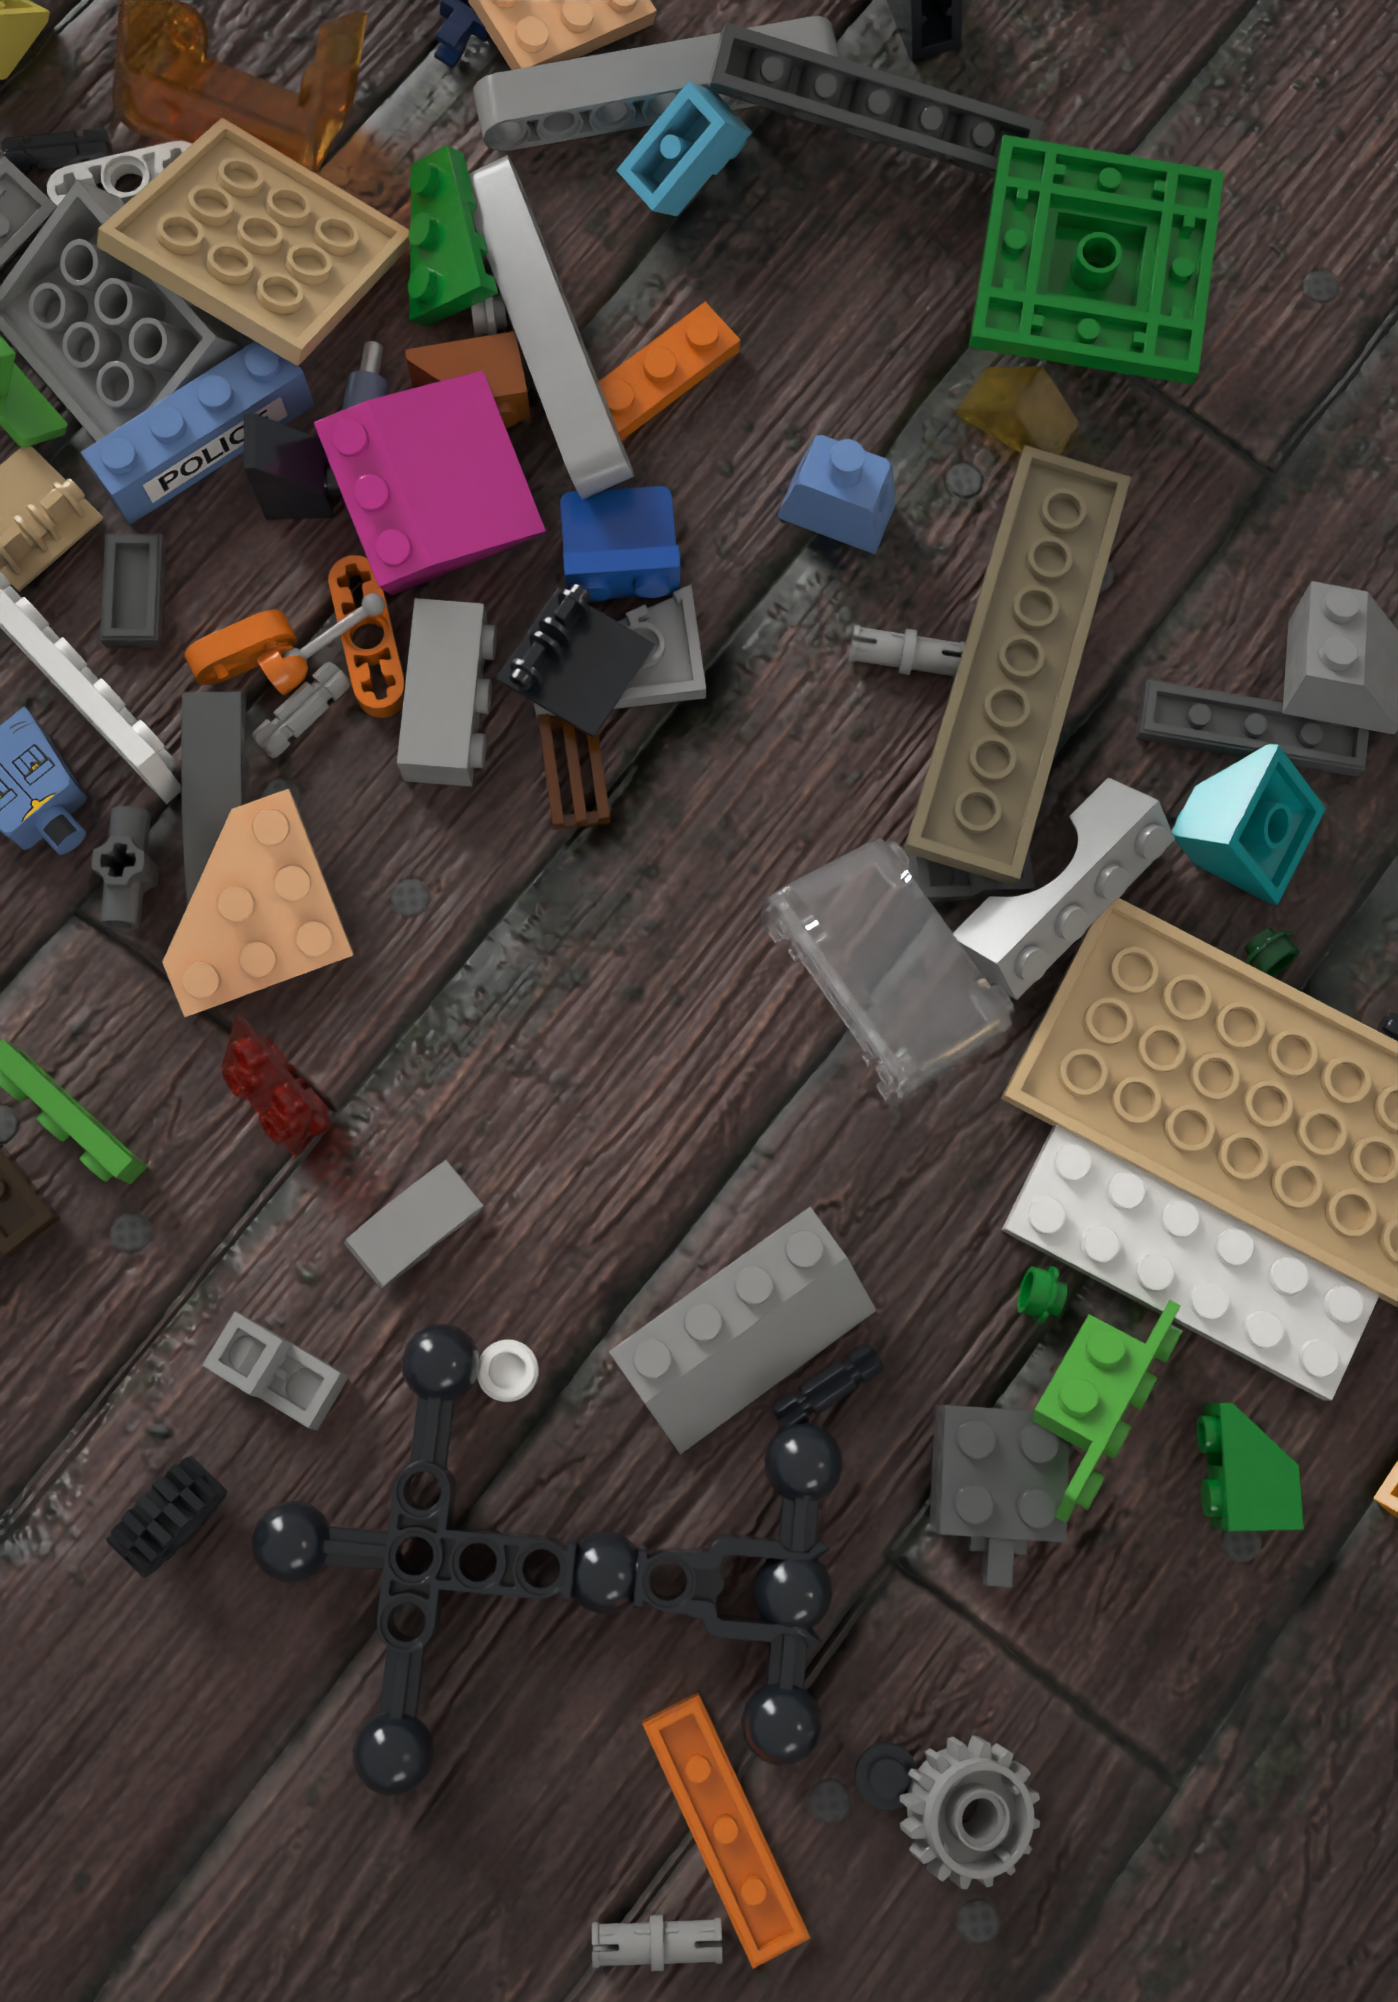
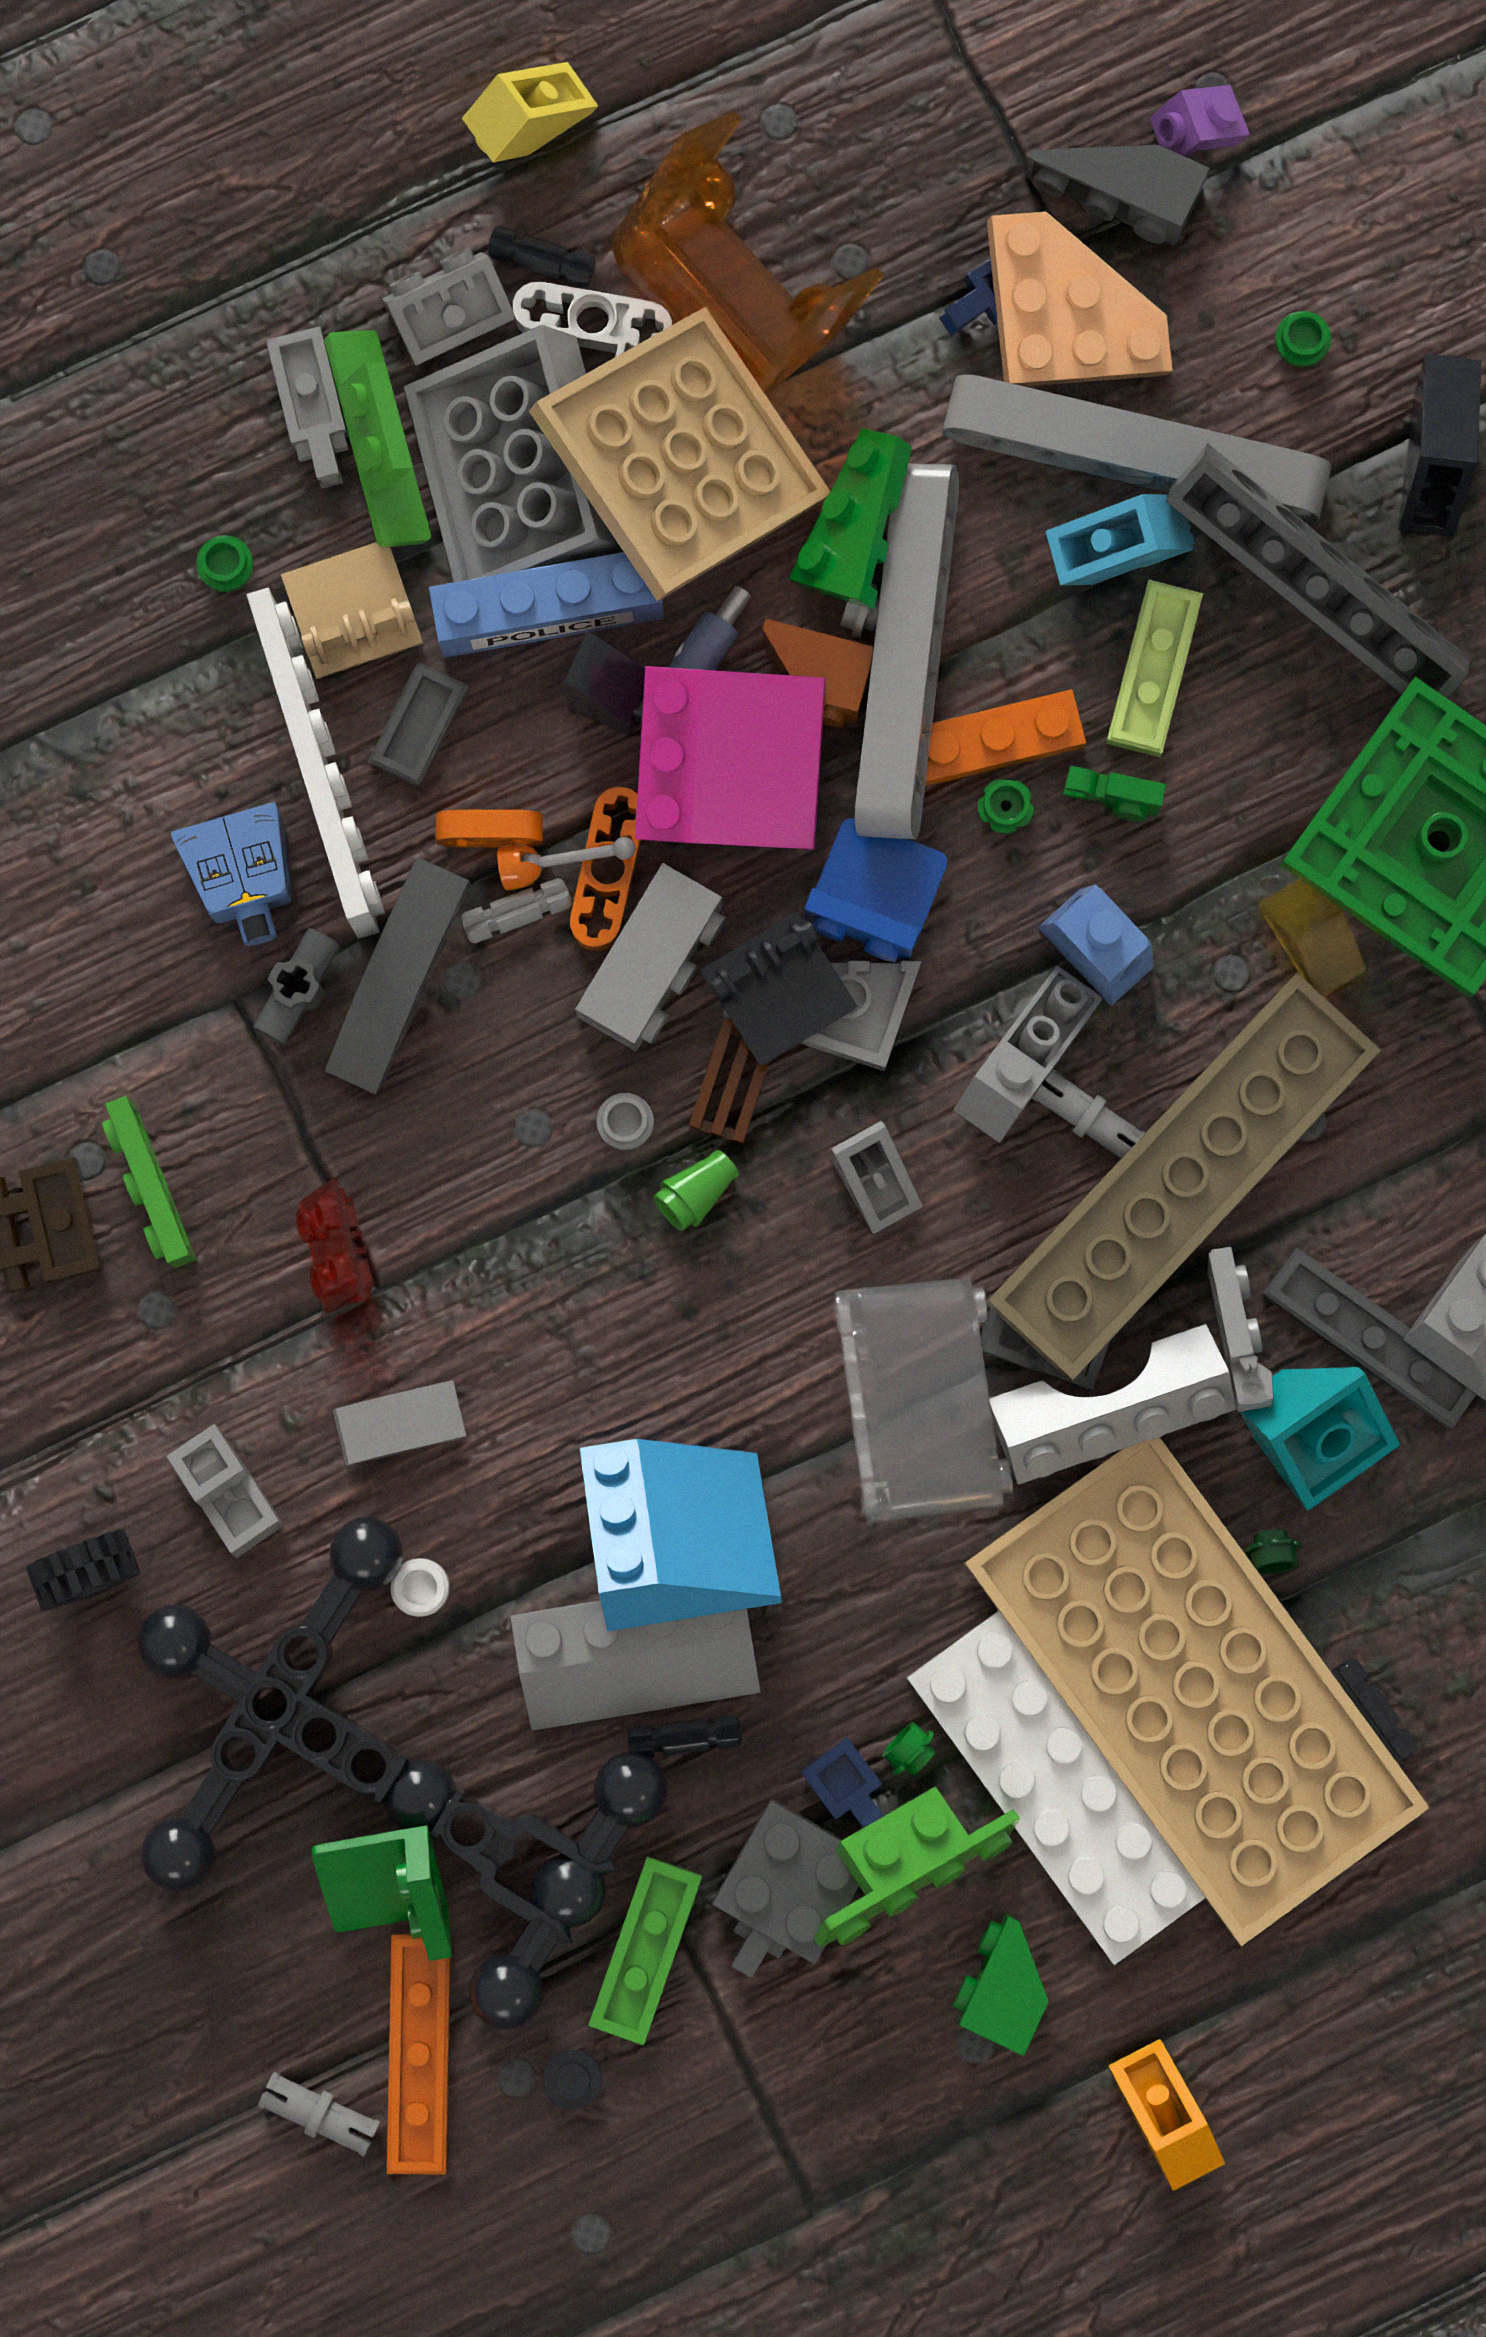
camera: 35 degrees right, 5 degrees up
(255, 911) = (391, 1082): light nougat plate -> none
(492, 849) = (625, 1121): none -> light grey plate
(586, 882) = (694, 1191): none -> bright green cone
(613, 1674) = (386, 1882): none -> green bracket
(702, 410) = (1013, 792): none -> green plate
(728, 1195) = (677, 1531): none -> dark azure slope
(744, 788) = (875, 1177): none -> light grey slope
(766, 258) = (1154, 668): none -> yellowish green tile
(795, 365) = (1128, 796): none -> green plate
(826, 624) = (1027, 1054): none -> light grey slope
(893, 1613) = (645, 1950): none -> bright green plate
(997, 1831) = (630, 2171): light grey gear -> none
(999, 1356) = (844, 1783): none -> dark blue plate
(1113, 745) = (1238, 1335): none -> light grey hinge

